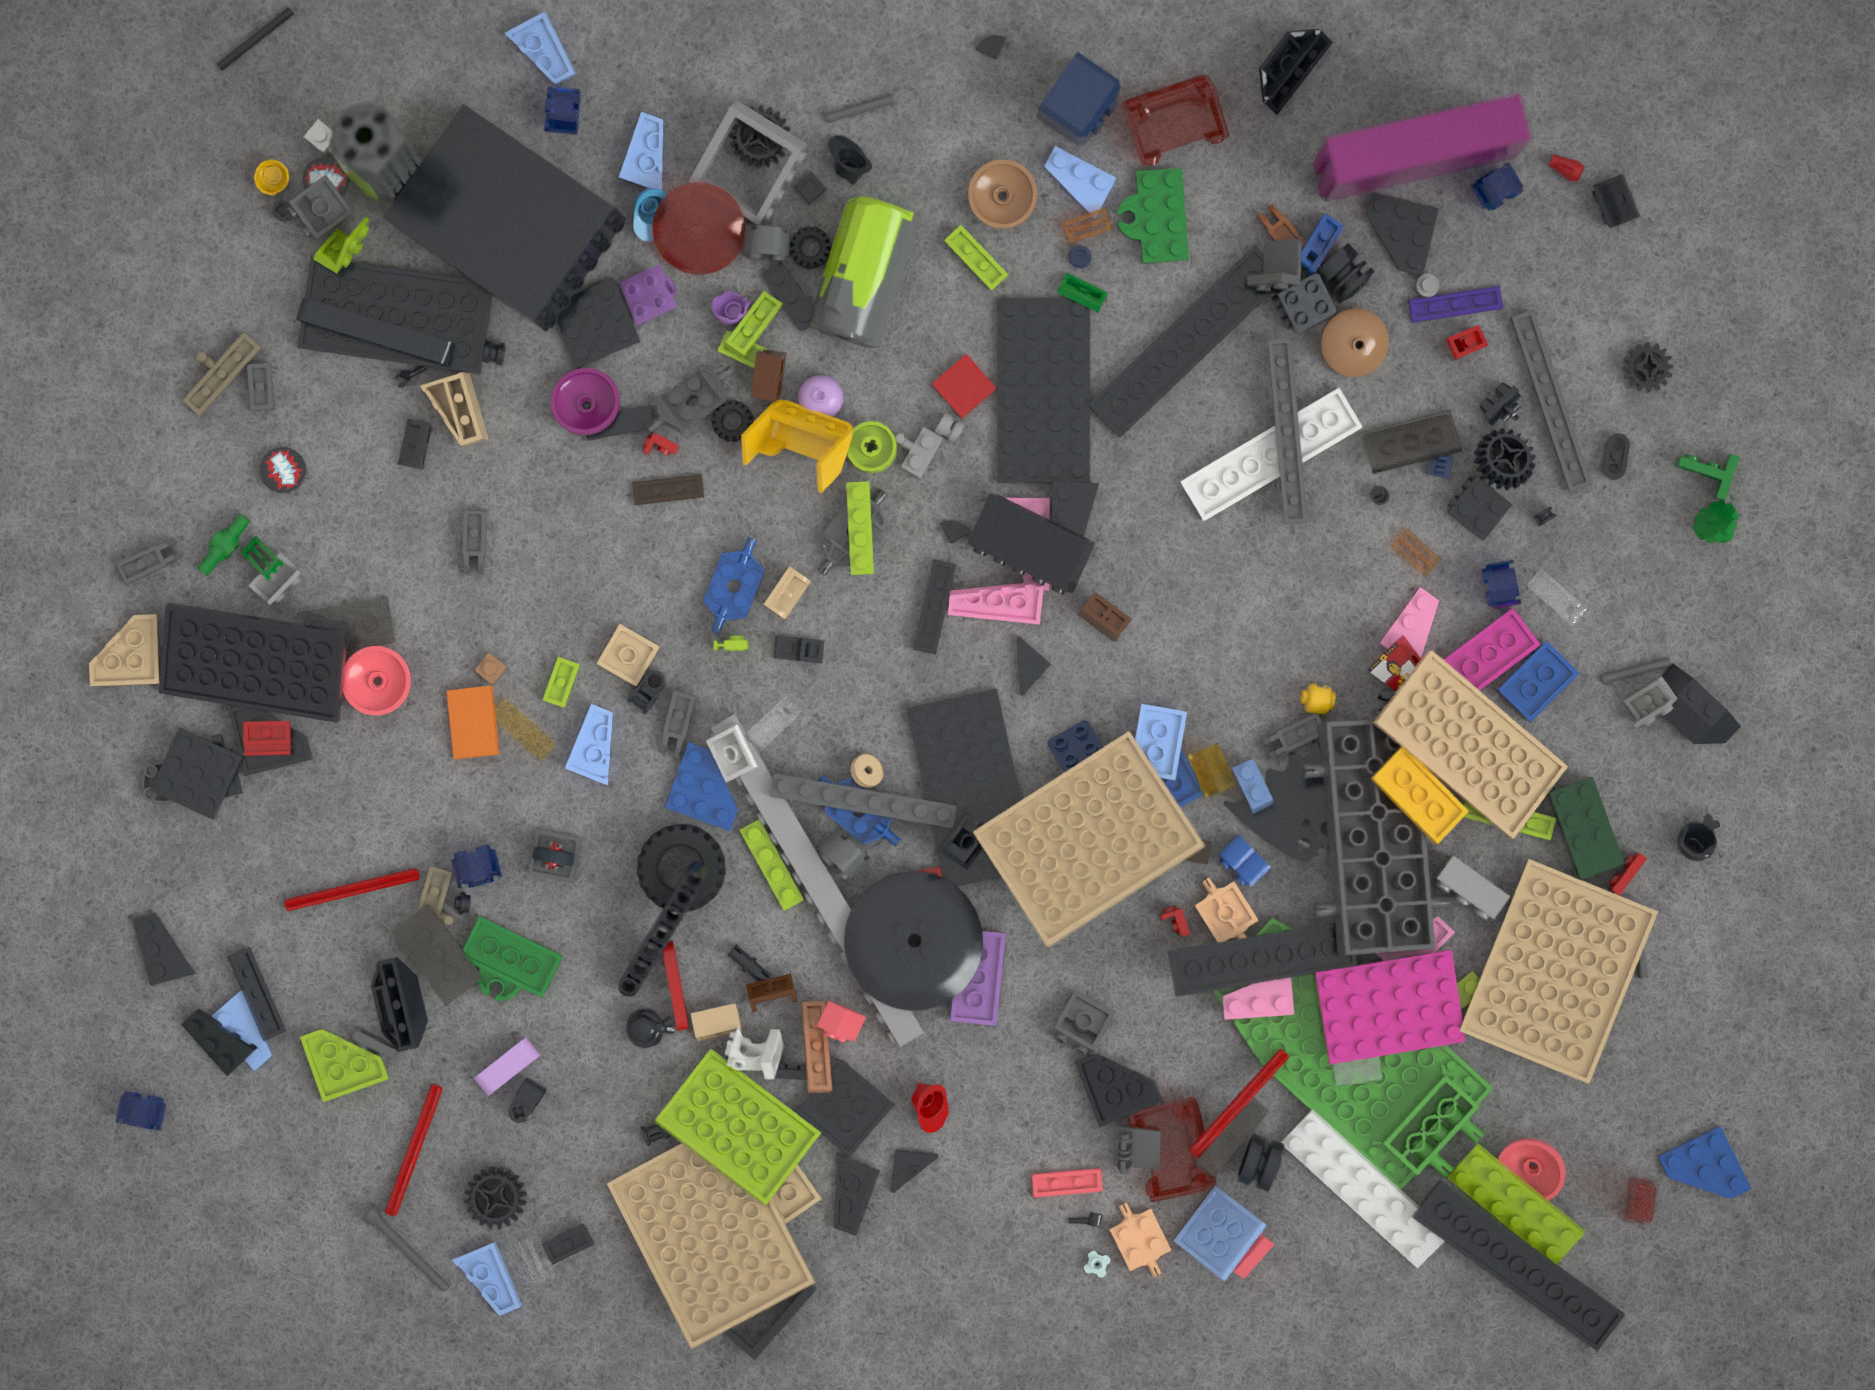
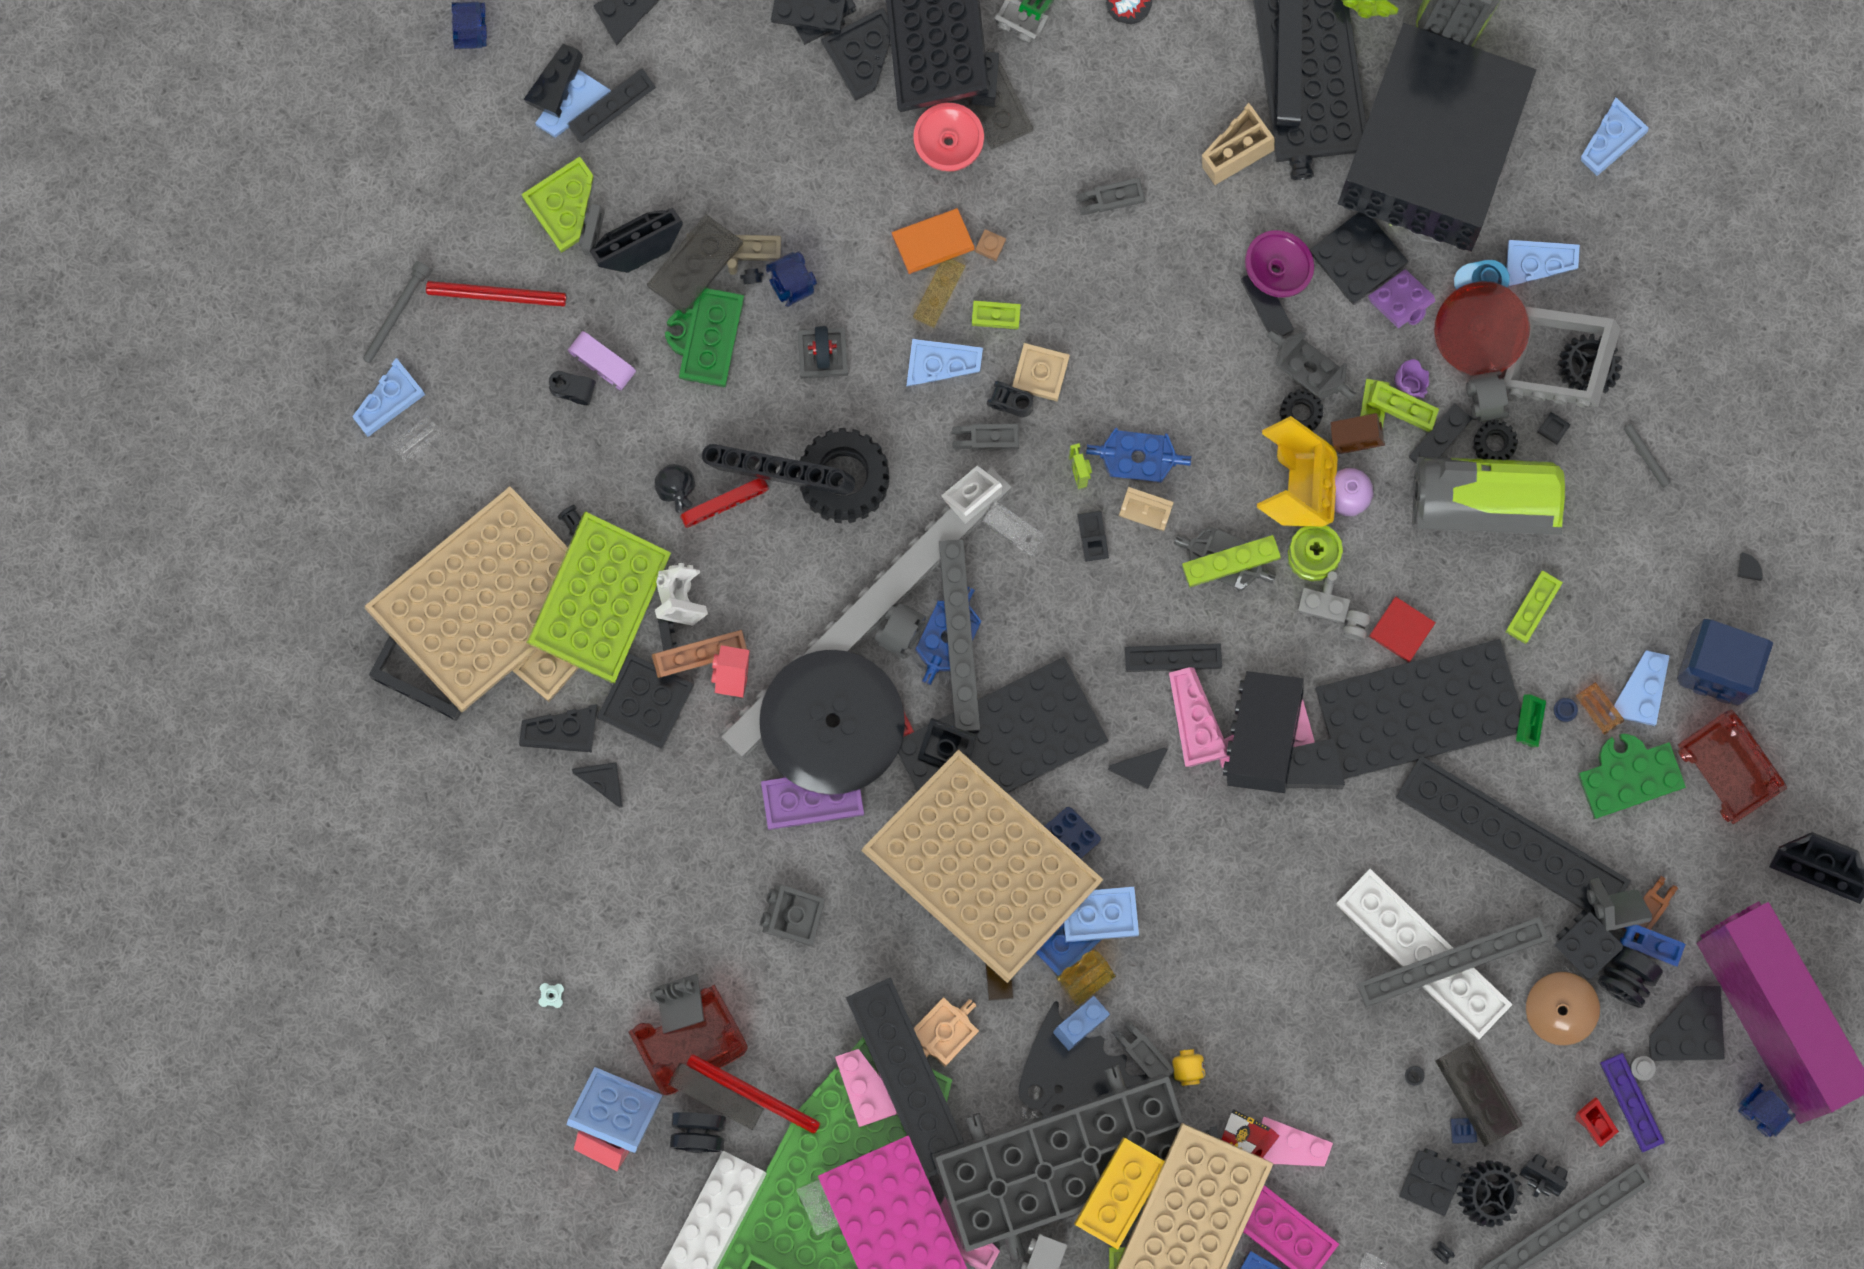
camera: 70 degrees right, 10 degrees down
(267, 738) = (864, 49): red plate -> none
(351, 889) = (737, 169): red axle -> none
(408, 375) = (1255, 93): black hand -> none
(415, 444) = (1190, 118): black hinge -> none
(485, 1192) = (459, 379): black gear -> none
(562, 110) = (1558, 169): clear blue brick -> none
(568, 1243) = (440, 465): black plate -> none
(665, 446) = (1257, 353): red bracket -> none
(668, 489) = (1215, 369): dark brown tile -> none
(701, 790) = (924, 477): blue plate -> none
(716, 1022) = (698, 550): tan hinge -> none
(748, 963) = (765, 568): black pin -> none
(771, 864) = (869, 566): lime plate -> none
(771, 990) = (744, 595): reddish brown hinge -> none
(849, 159) = (1594, 456): black piece -> none
(858, 770) = (999, 635): tan piece -> none
(931, 1106) = (668, 784): red piece -> none
(954, 530) = (1255, 658): black tile -> none
(1004, 177) = (1614, 601): medium nougat dish -> none
(1067, 1182) = (626, 943): coral tile -> none
(1094, 1220) = (595, 981): black hand -> none
(1104, 616) = (1211, 828): reddish brown hinge -> none
(1115, 1089) = (734, 965): black plate -> none
(1140, 1239) = (587, 1032): light nougat plate -> none
(1180, 924) = (920, 987): red bracket -> none
(1243, 861) = (1002, 1035): blue brick -> none
(1425, 572) = (1376, 1110): clear orange tile -> none
(1502, 584) = (1360, 1224): clear blue brick -> none
(1568, 168) = (1806, 1182): red cone -> none
(1615, 201) = (1788, 1239): black bracket -> none

